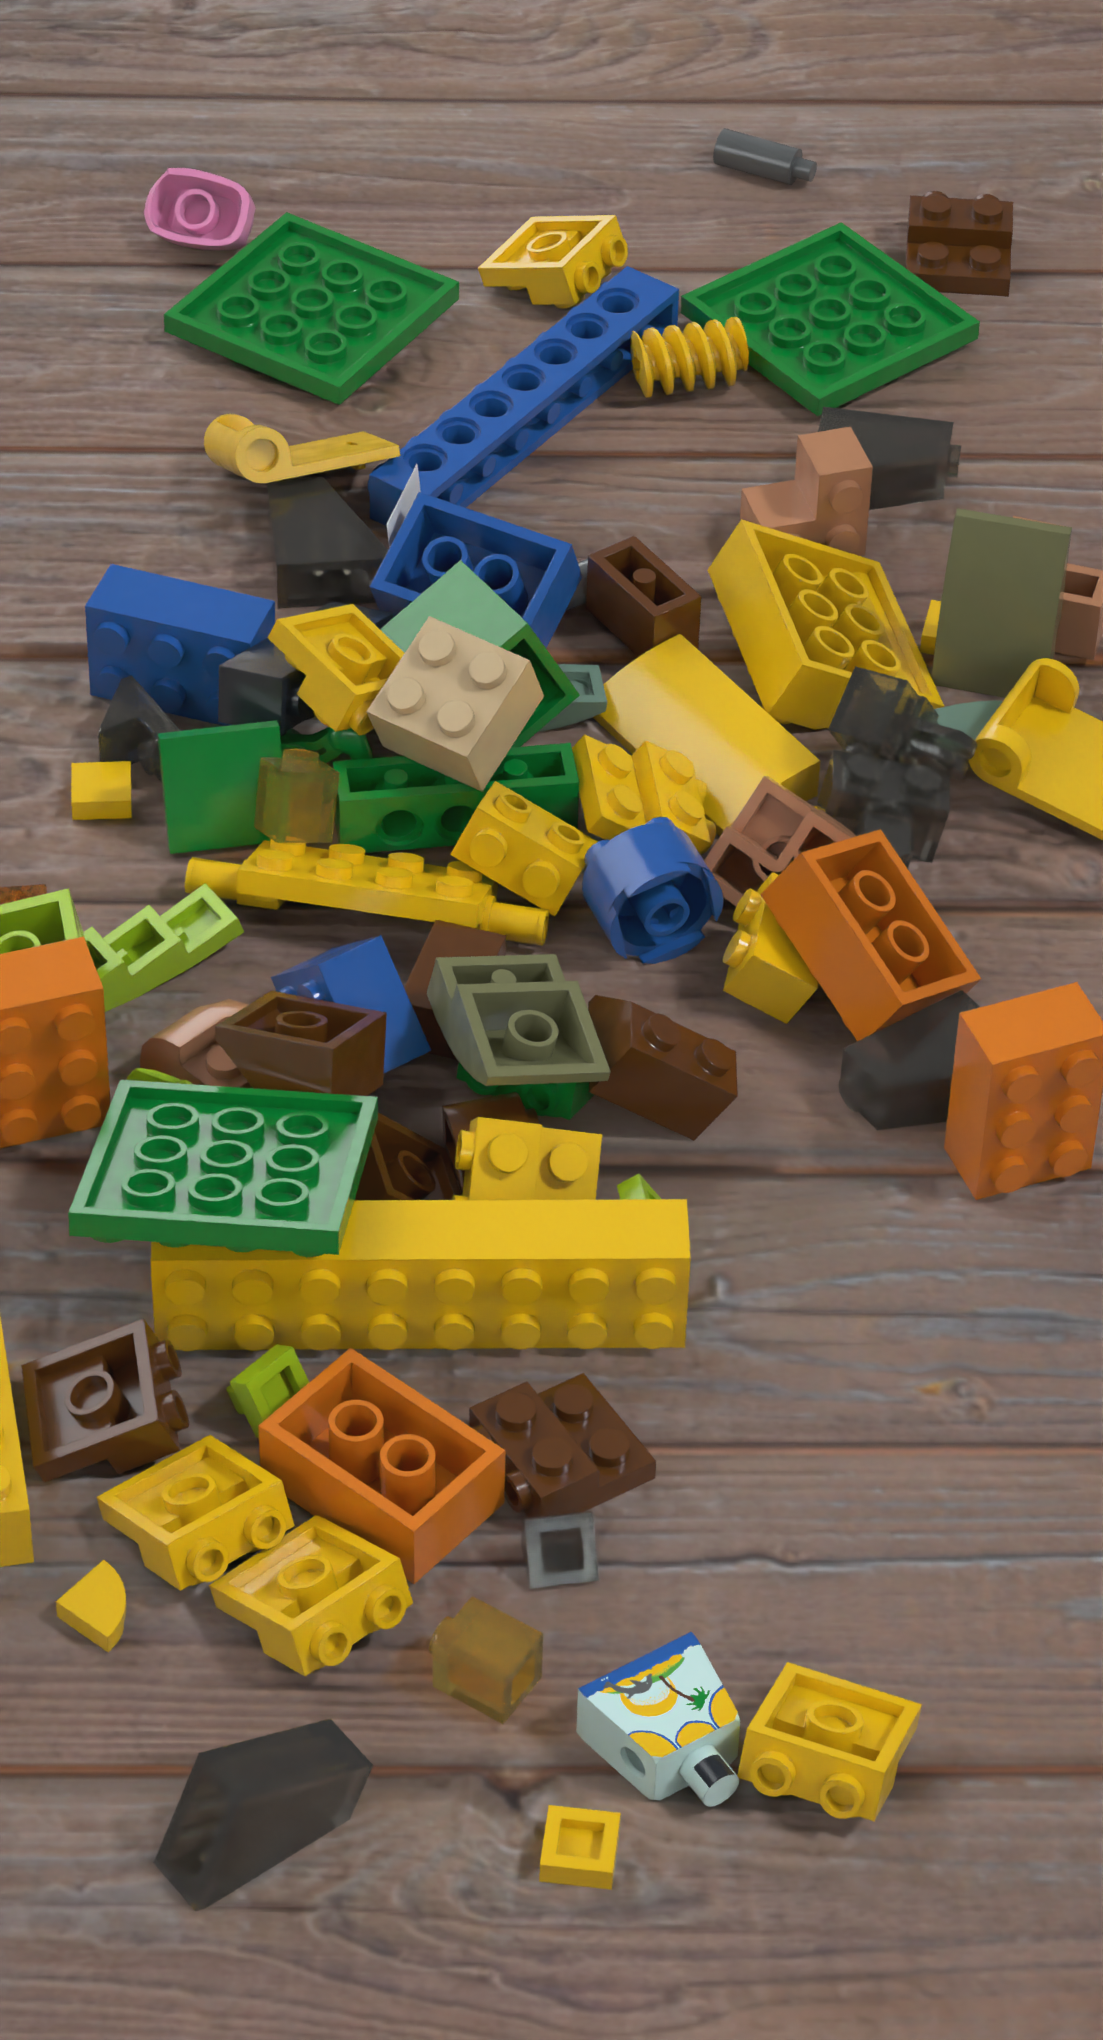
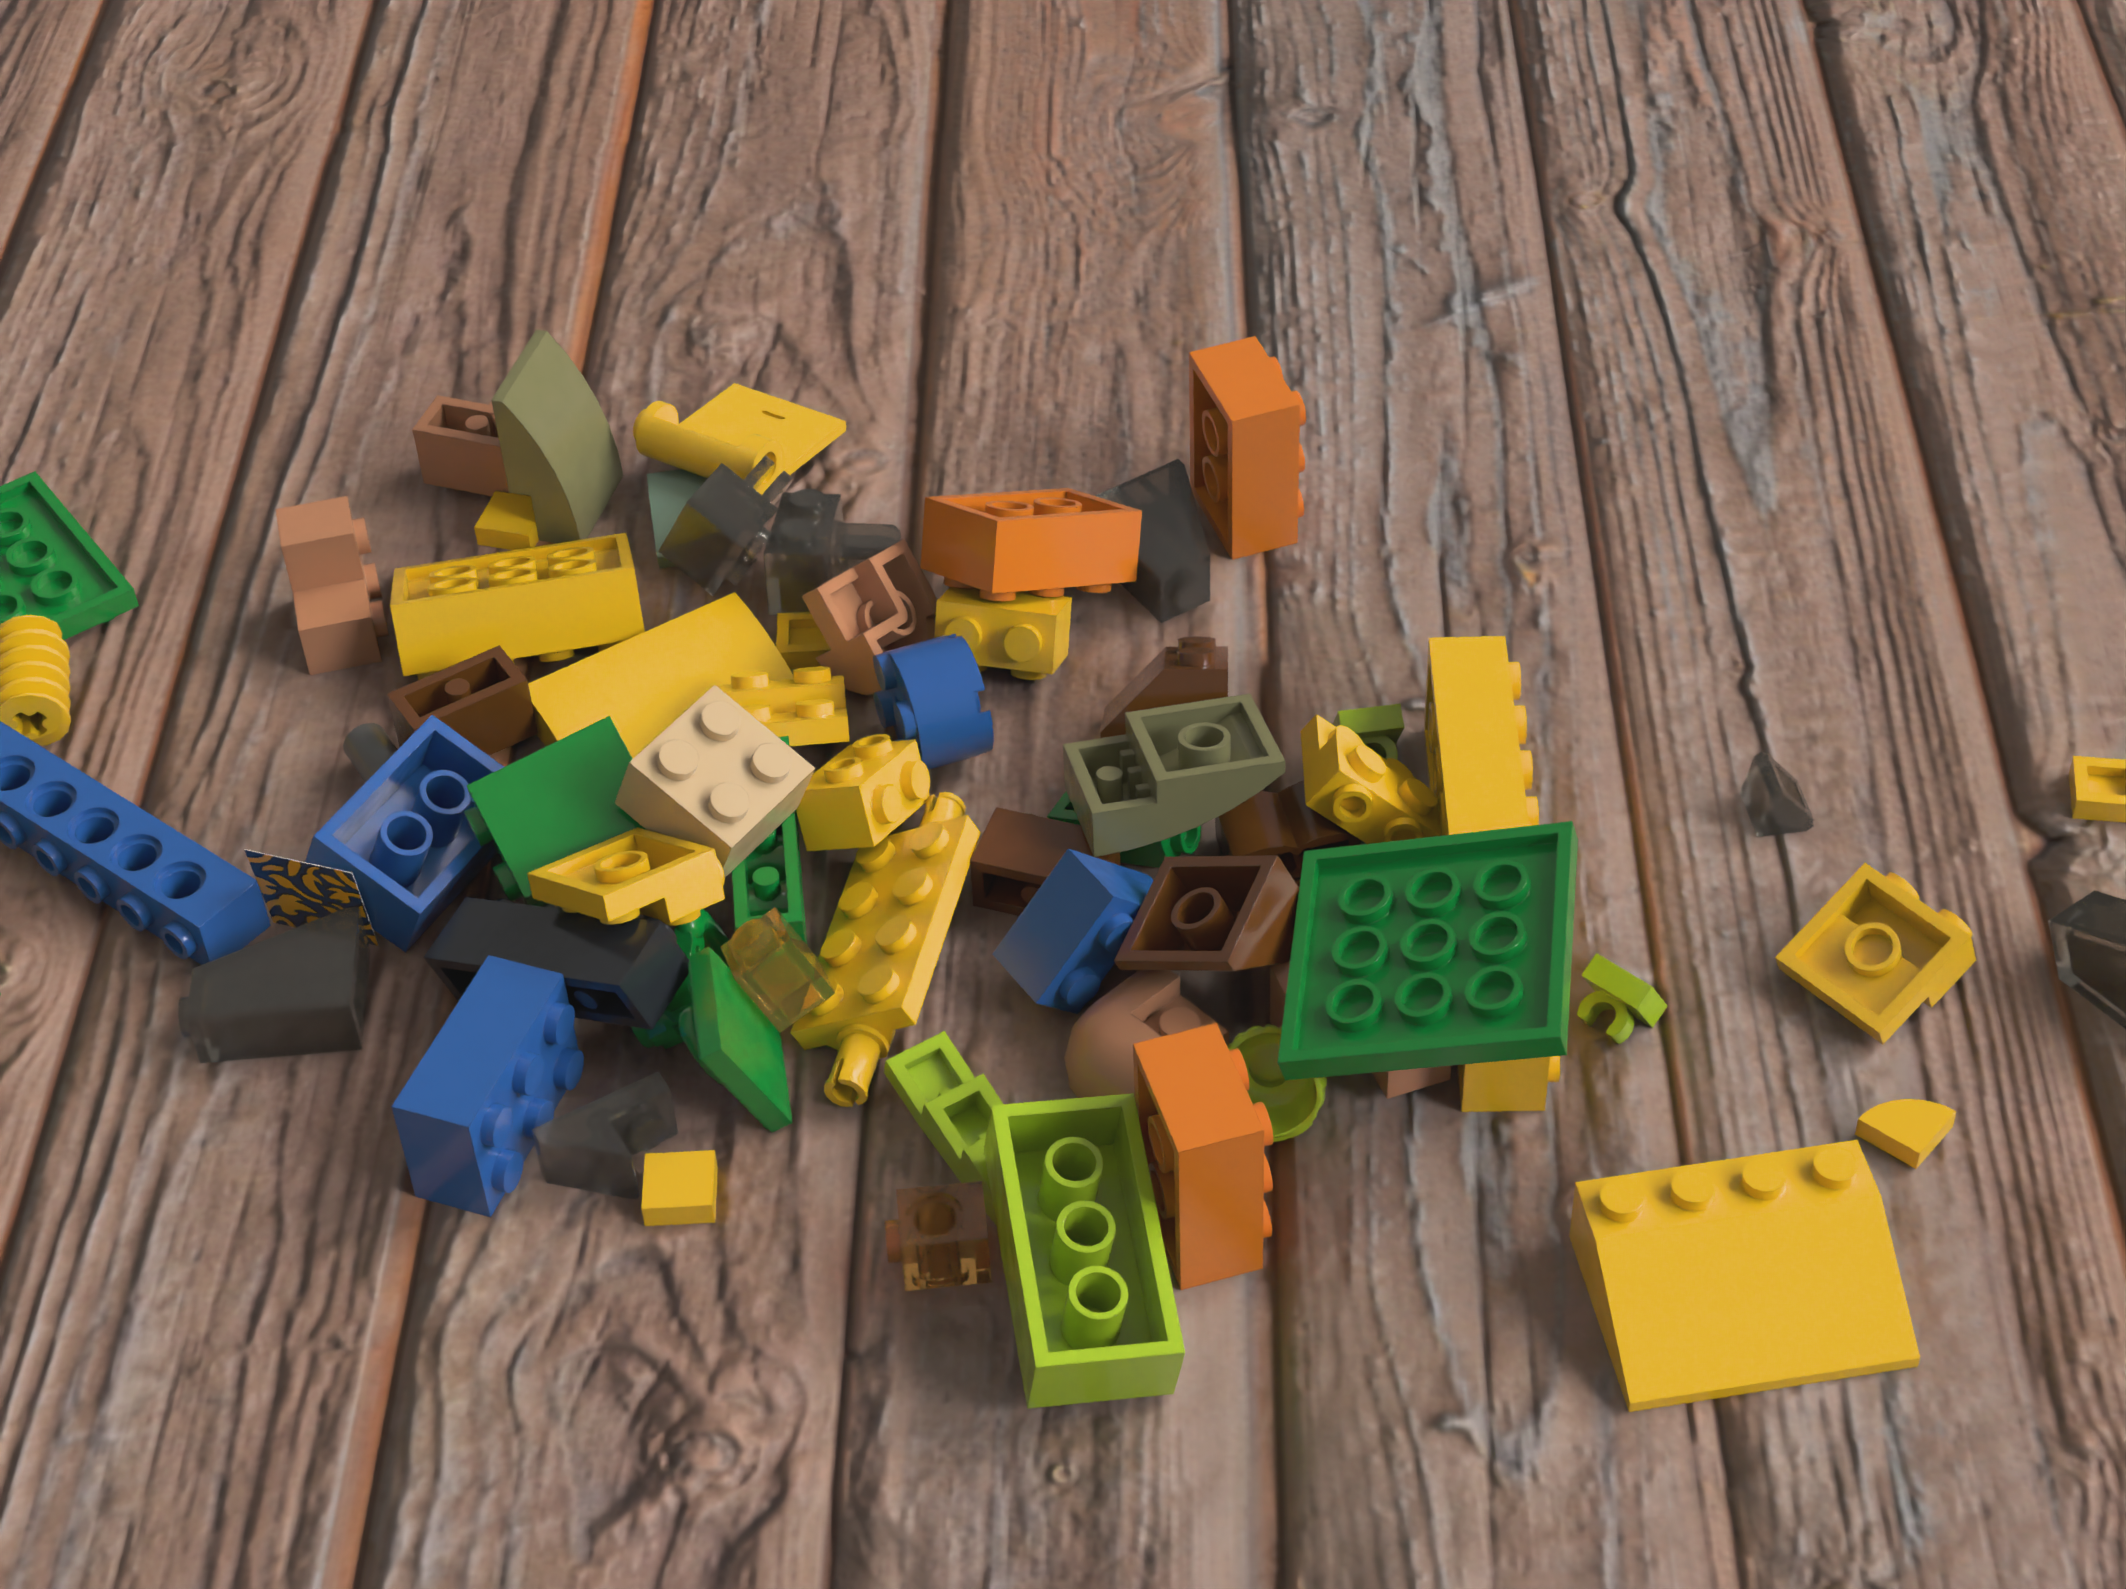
camera: 85 degrees left, 0 degrees up
(104, 1402) = (1658, 1107): reddish brown plate -> none
(199, 1512) = (1791, 1041): yellow plate -> none
(265, 456) = (124, 1003): yellow door -> none
(383, 1462) = (1723, 897): orange brick -> none
(486, 1659) = (1929, 835): clear yellow brick -> none
(562, 1447) = (1655, 800): reddish brown plate -> none
(664, 1723) = (1969, 722): light aqua torso -> none
(828, 1742) = (1974, 622): yellow plate -> none
(907, 454) = (236, 558): clear smoke slope -> none

